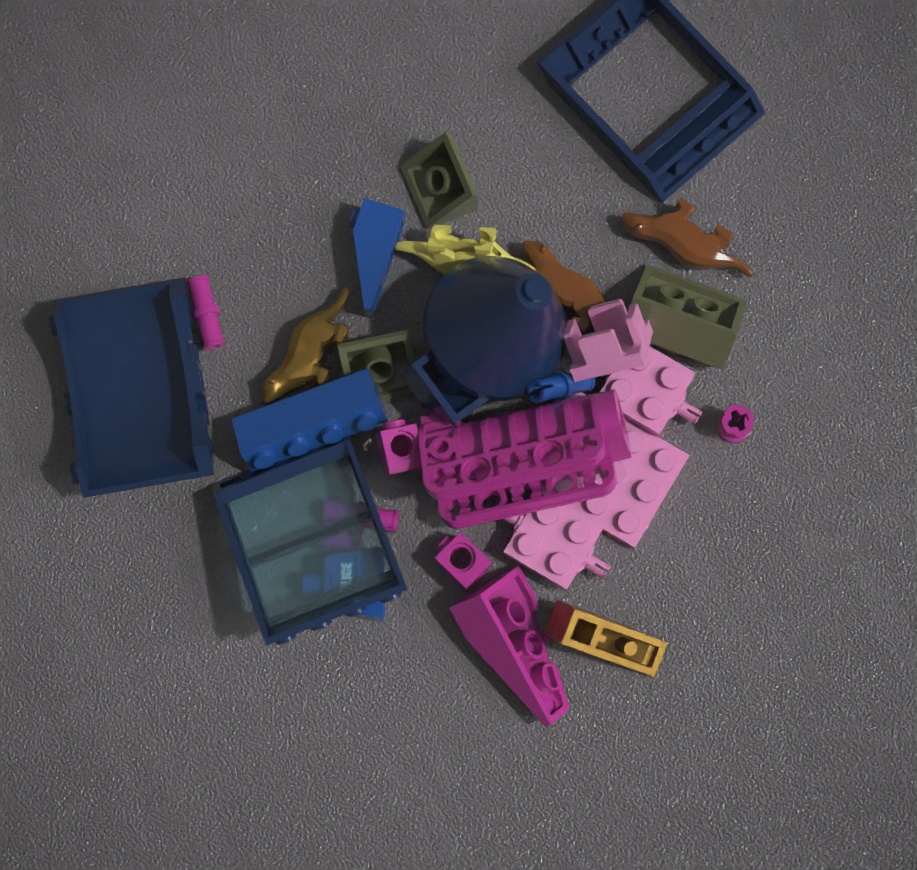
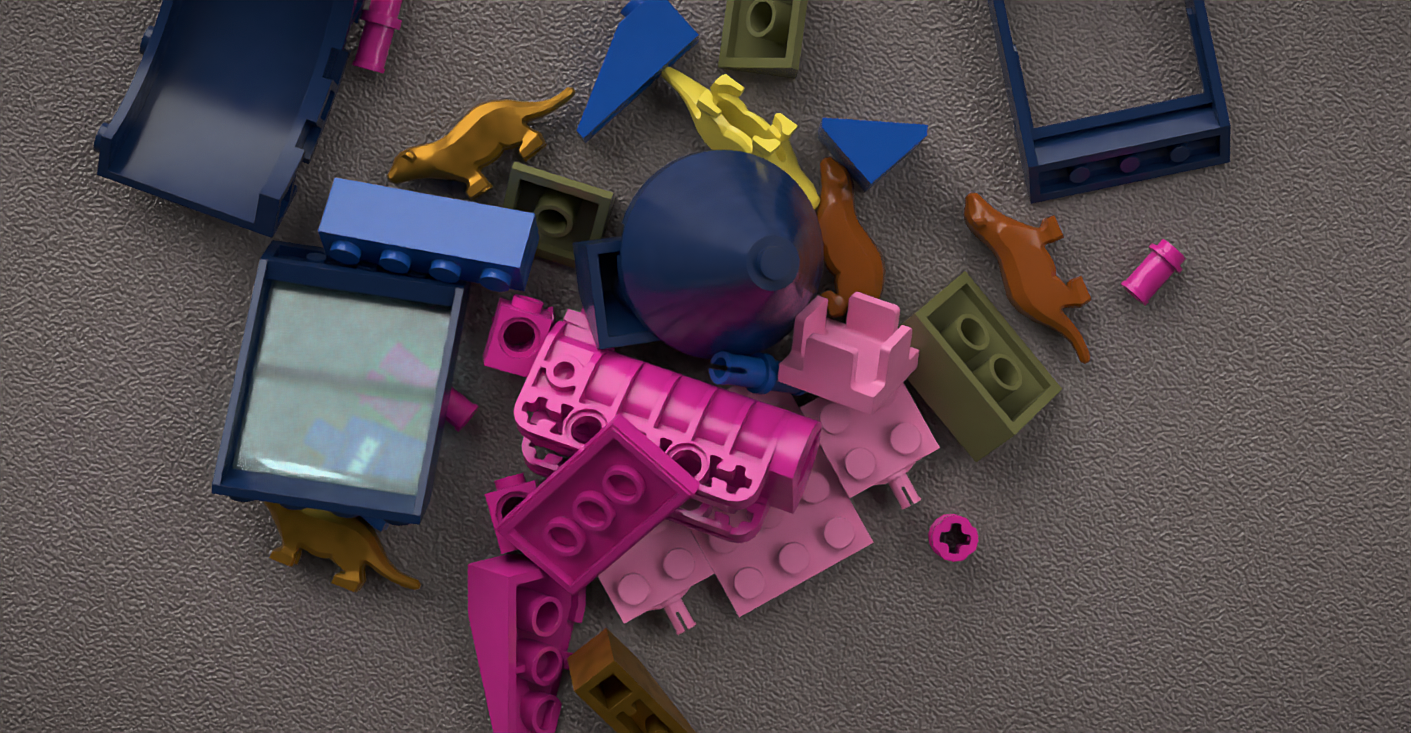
camera: 25 degrees right, 10 degrees up
(352, 640) = (346, 541): none -> pearl gold animal
(510, 514) = (597, 505): none -> dark pink tile
(545, 217) = (869, 147): none -> blue slope
(759, 200) = (1153, 271): none -> dark pink pin

